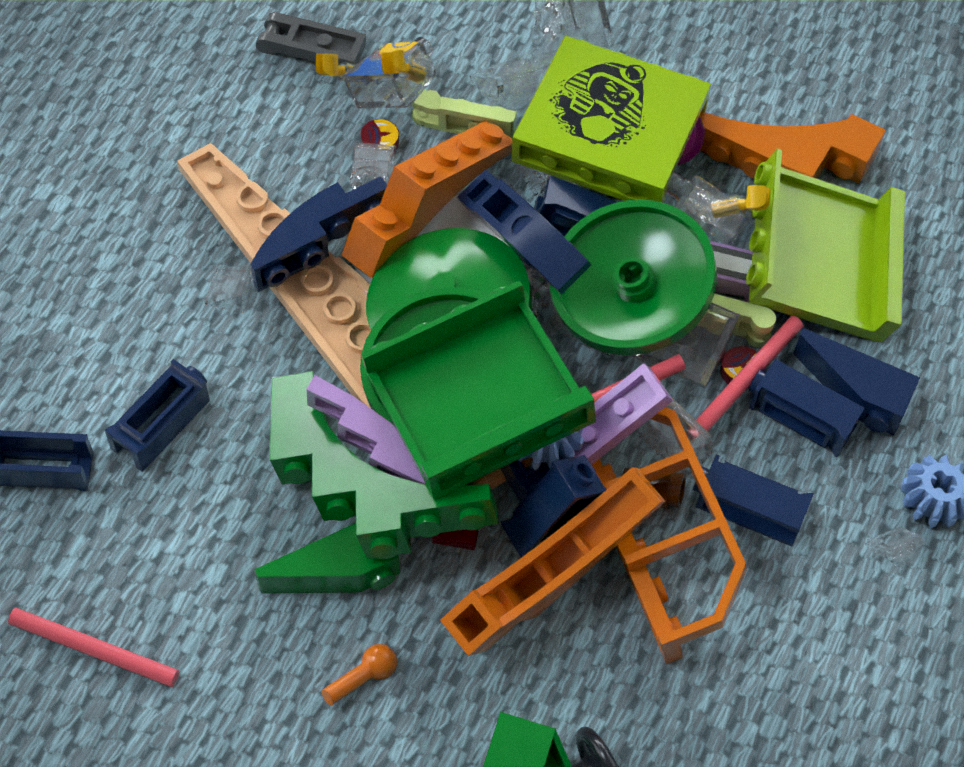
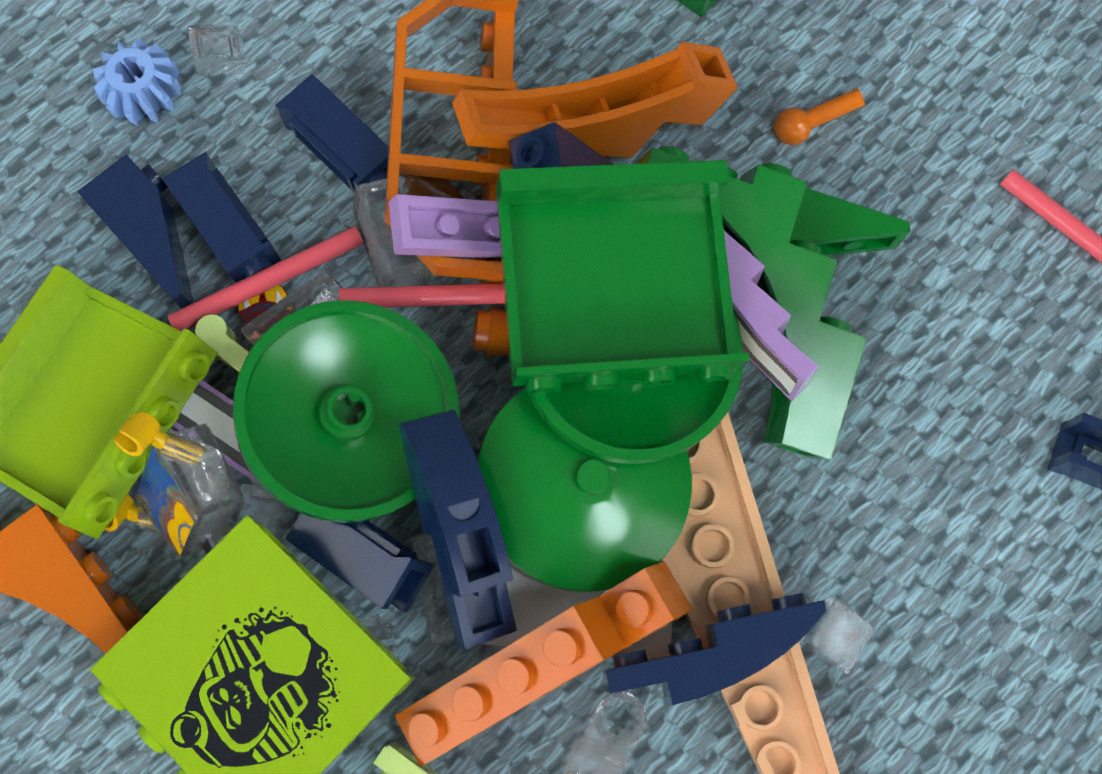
camera: 160 degrees left, 15 degrees up
(169, 423) = (926, 503): dark blue window -> none

